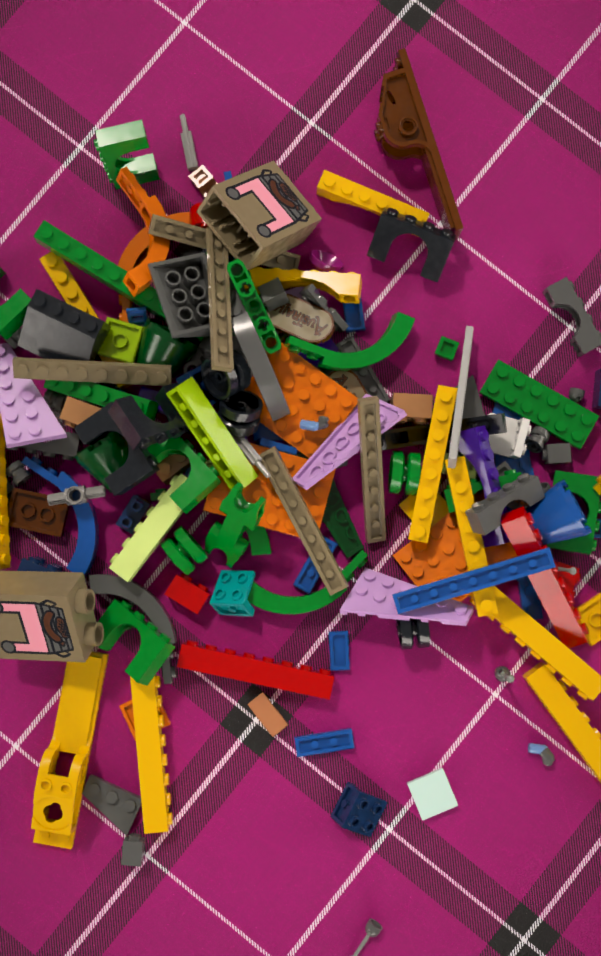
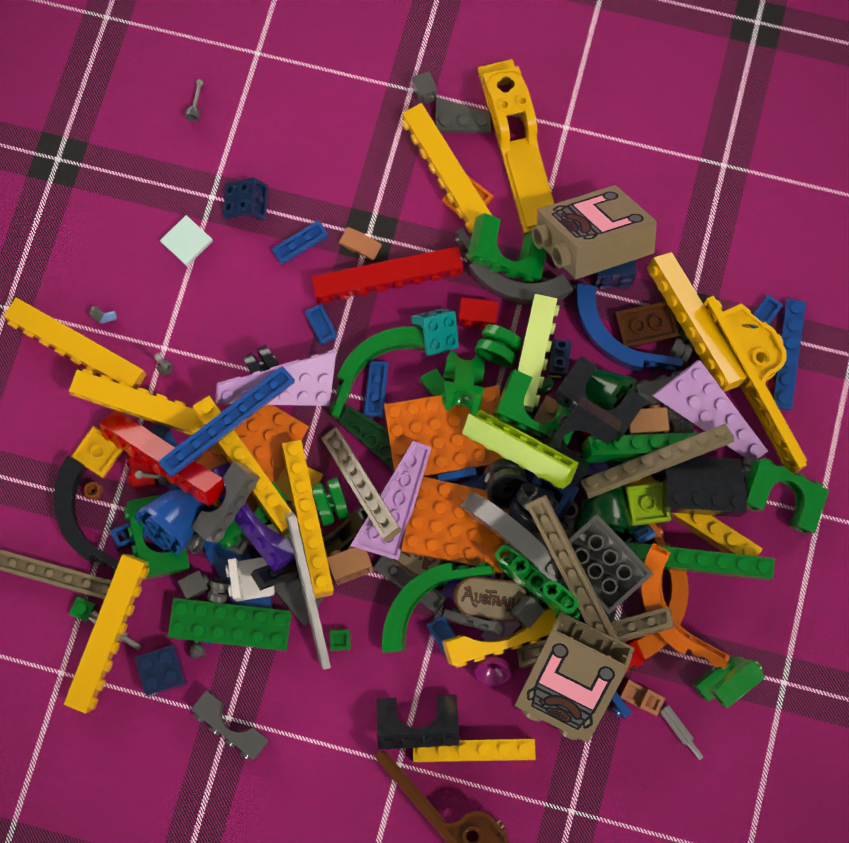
camera: 160 degrees right, 10 degrees down
(66, 496) = (625, 343): light grey axle -> none
(250, 453) = (476, 449): light grey axle -> none
(303, 521) = (404, 414): dark tan plate -> none
(314, 426) = (426, 508): arm -> none

